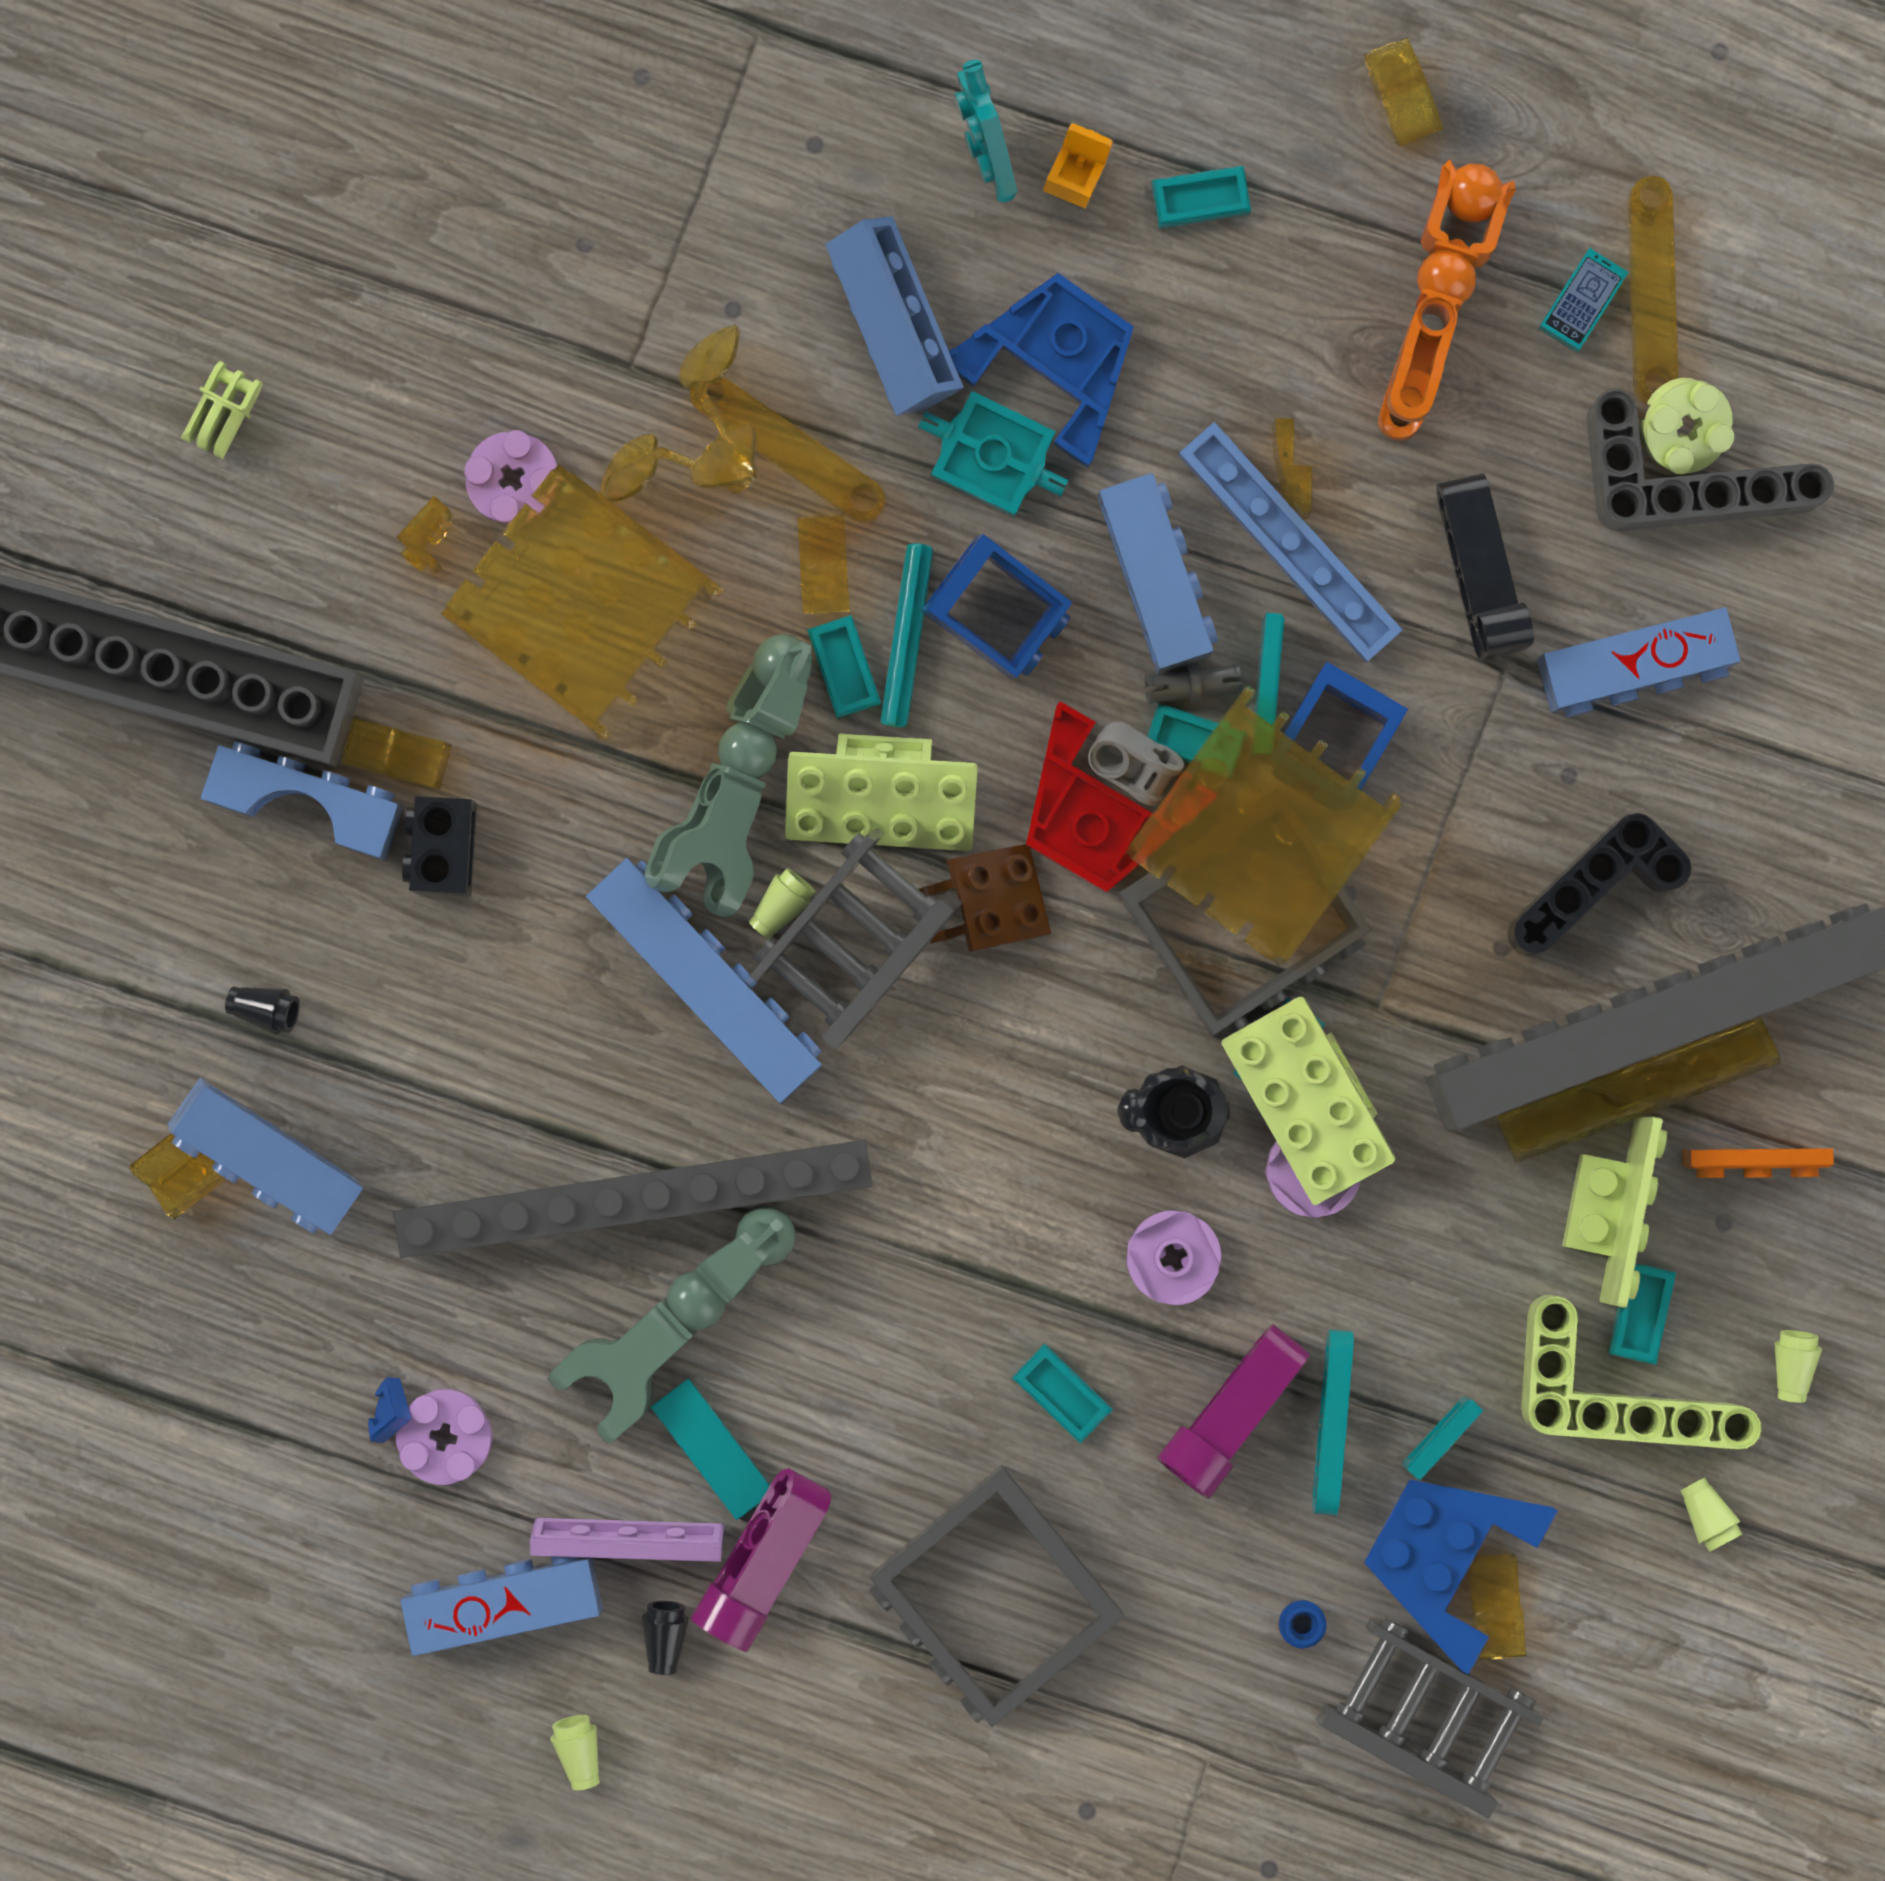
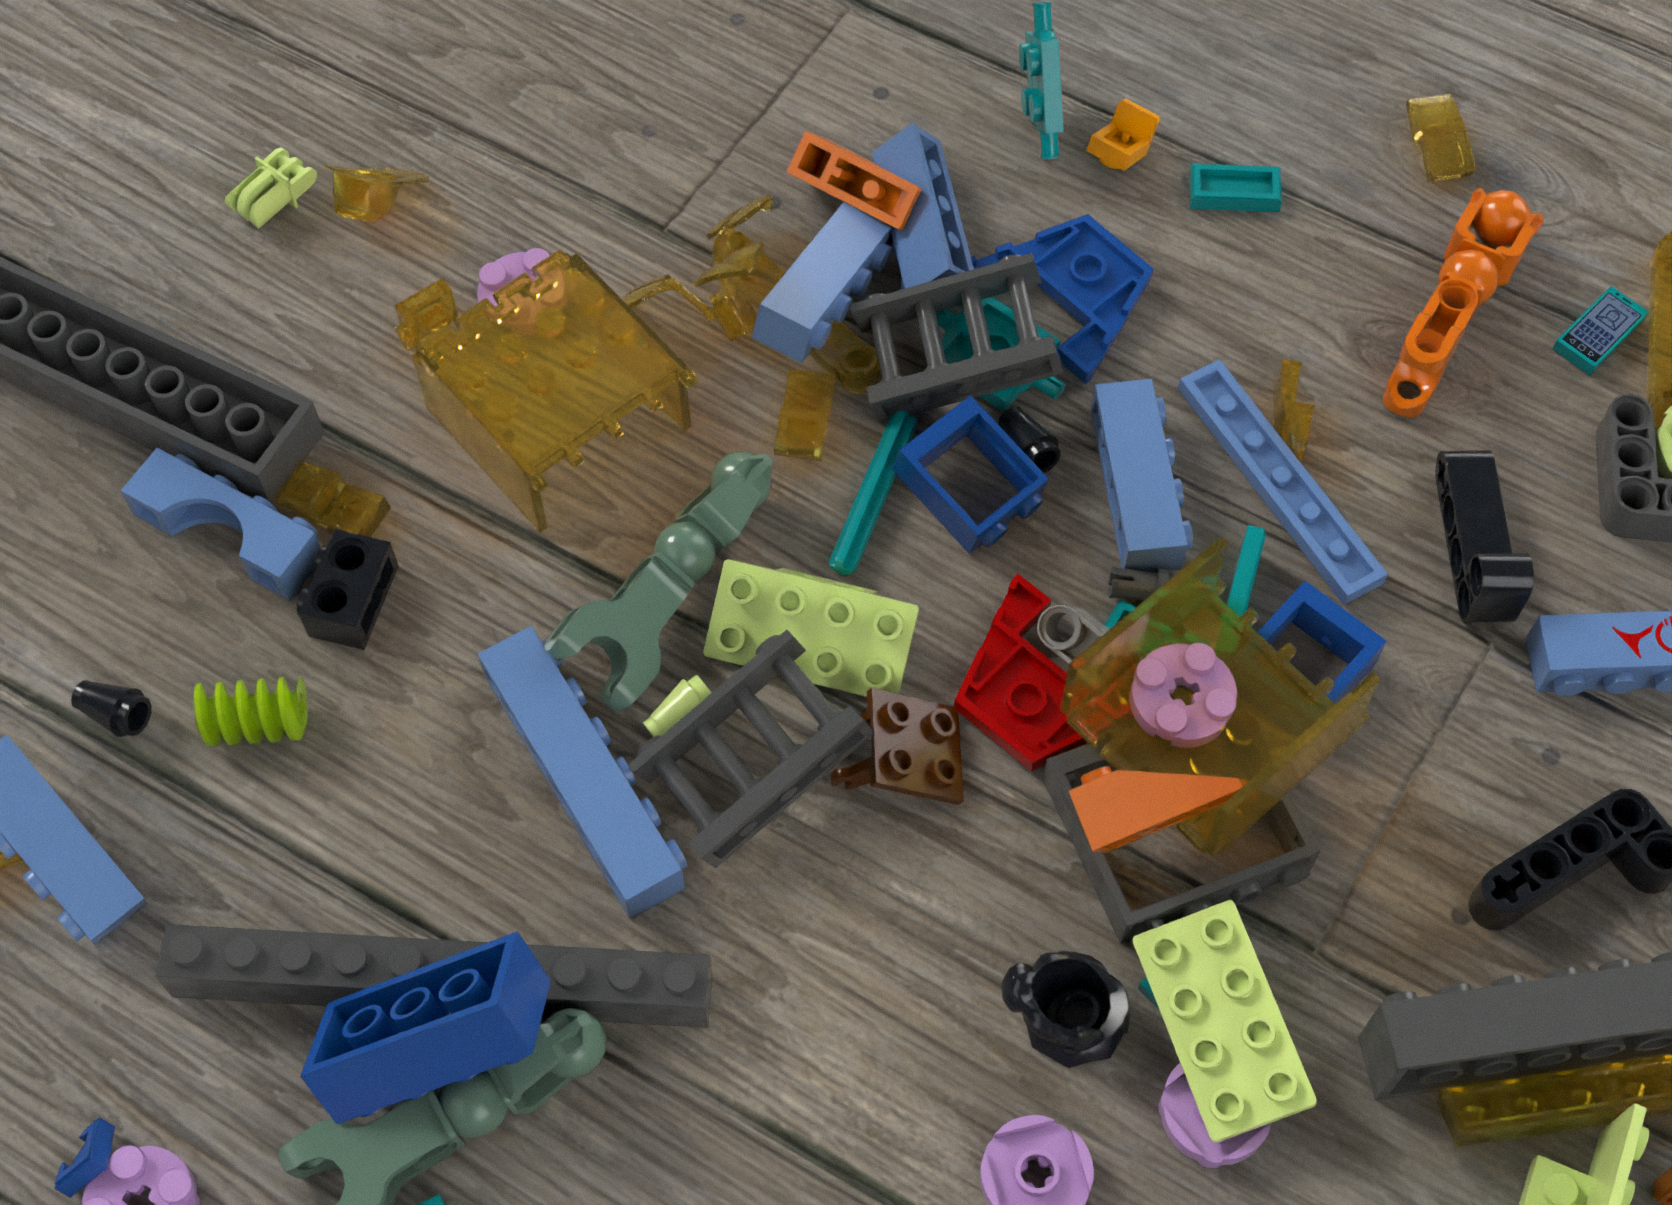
camera: 15 degrees right, 25 degrees down
(326, 387) = (368, 192): none -> clear yellow piece
(393, 991) = (251, 714): none -> lime piece
(648, 1261) = (427, 1029): none -> blue brick
(812, 422) = (822, 283): none -> medium blue brick
(816, 289) = (854, 179): none -> orange slope
(844, 667) = (803, 510): teal tile -> none
(990, 489) = (982, 373): none -> dark grey fence
(1045, 551) = (1031, 438): none -> black cone
(1205, 809) = (1171, 719): none -> lavender plate
(1214, 931) = (1135, 804): none -> orange slope

